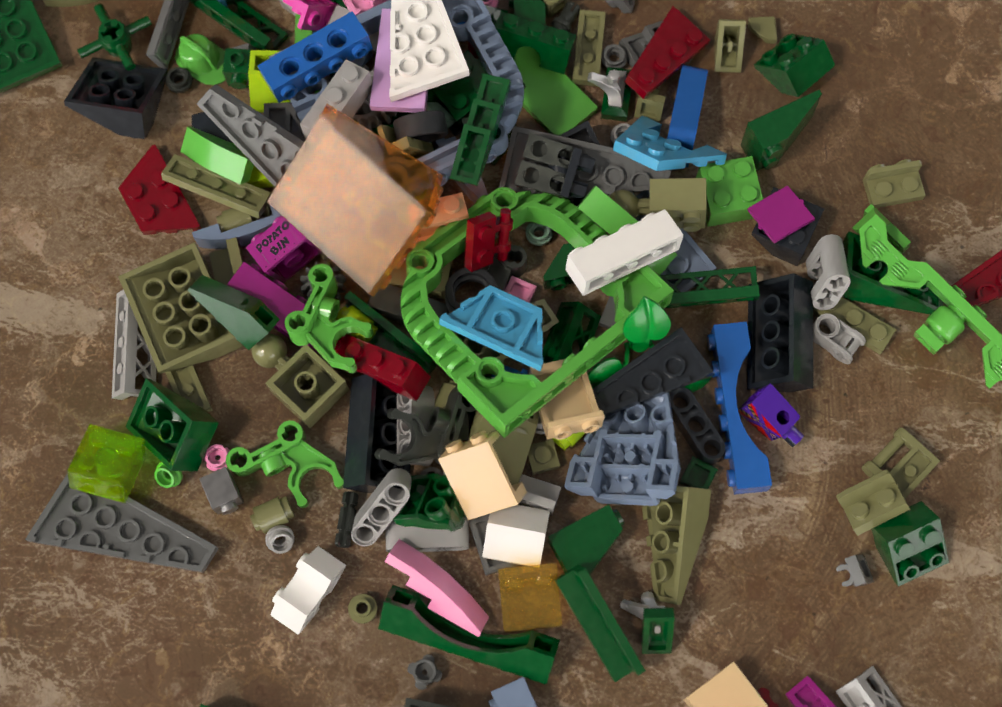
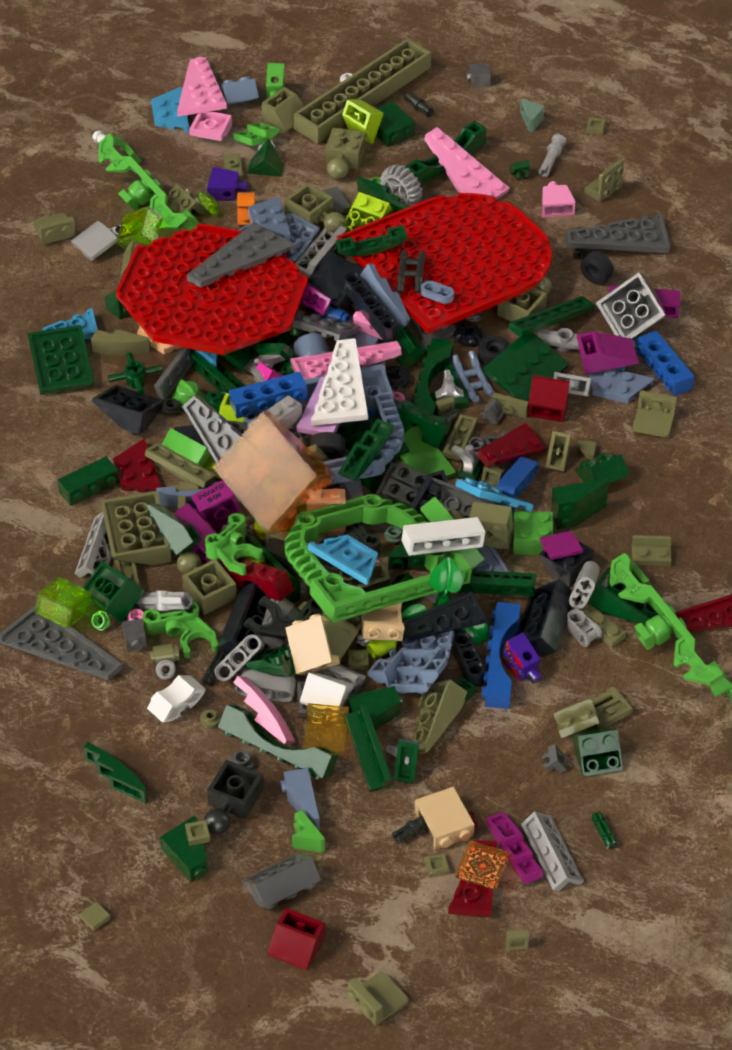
camera: 10 degrees right, 25 degrees down
(93, 235) = (88, 481): none -> dark green brick
(252, 429) = (165, 600): none -> light grey piece
(481, 239) = (350, 515): dark red plate -> none
(951, 674) = (604, 830): none -> dark green axle

